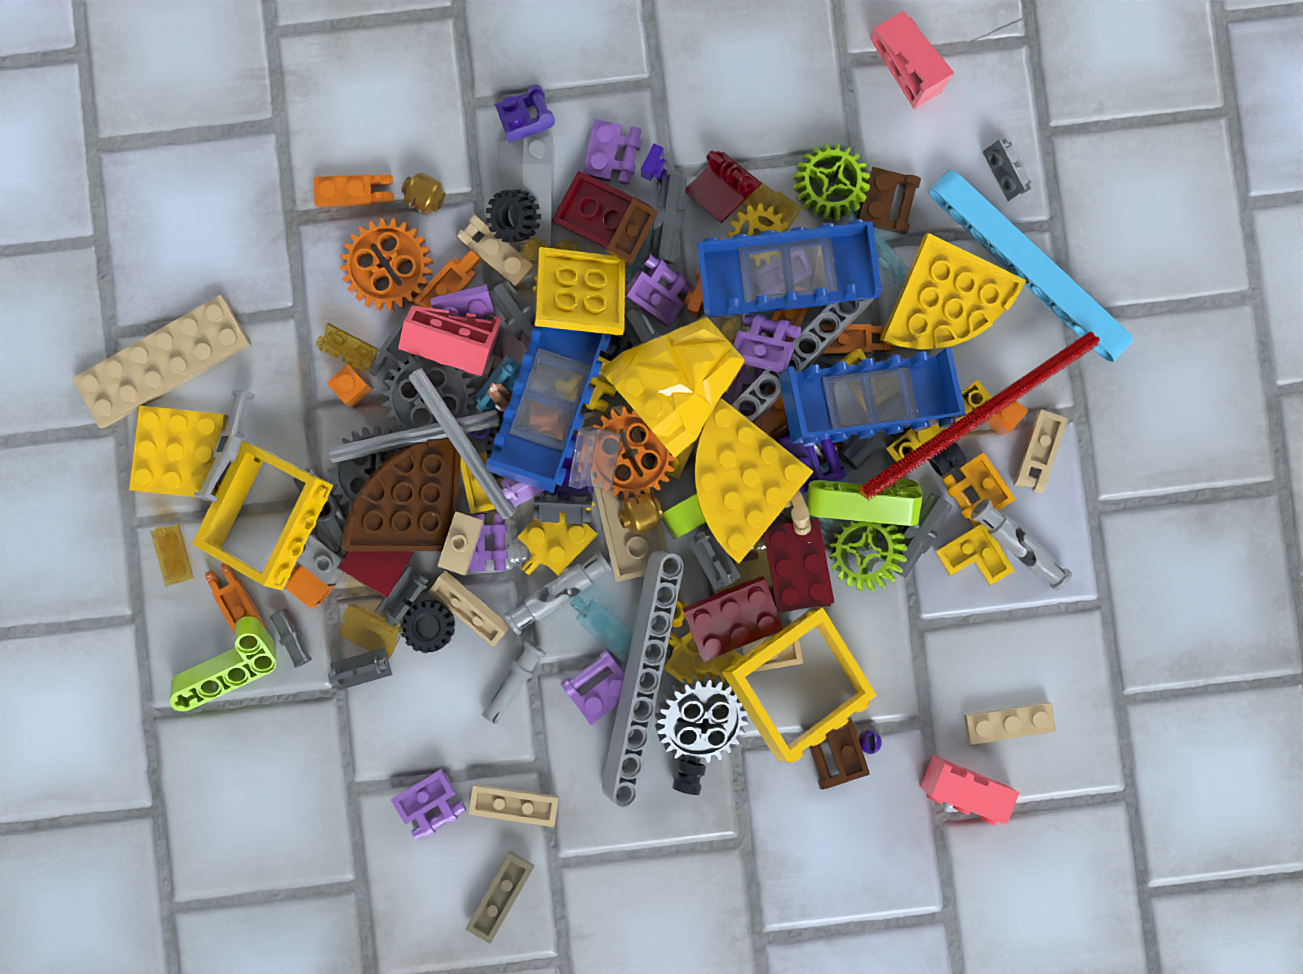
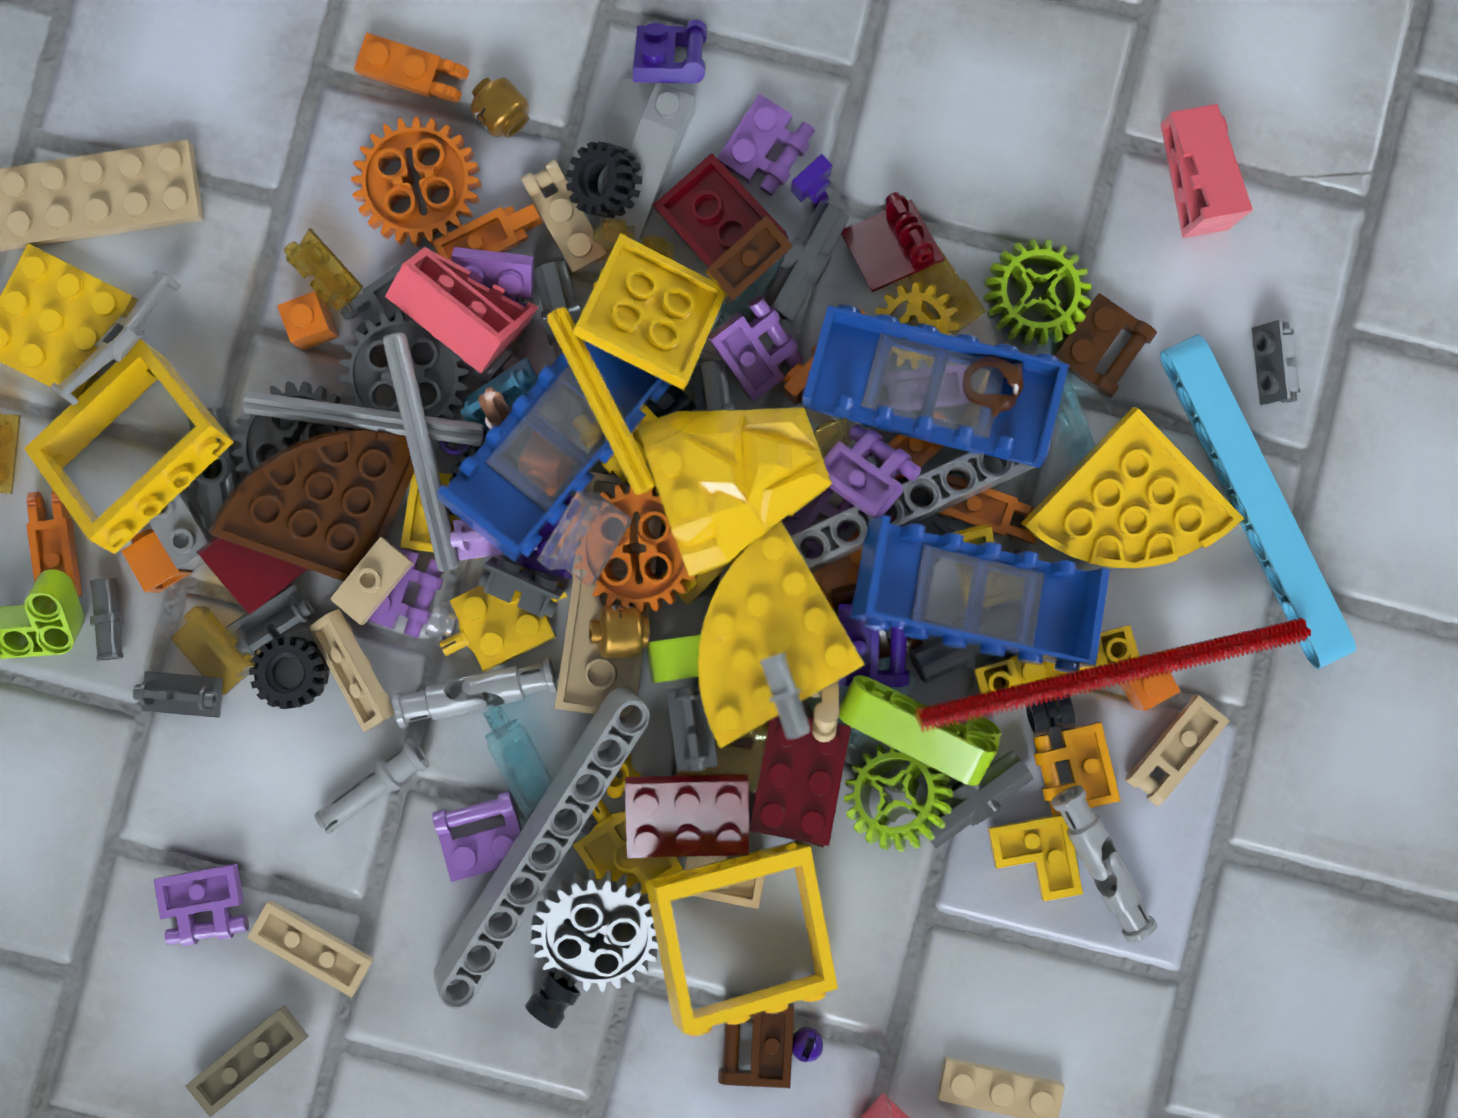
camera: 25 degrees right, 0 degrees up
(571, 363) = (601, 401): none -> yellow axle
(769, 511) = (785, 696): none -> light grey axle
(831, 264) = (995, 402): none -> reddish brown piece

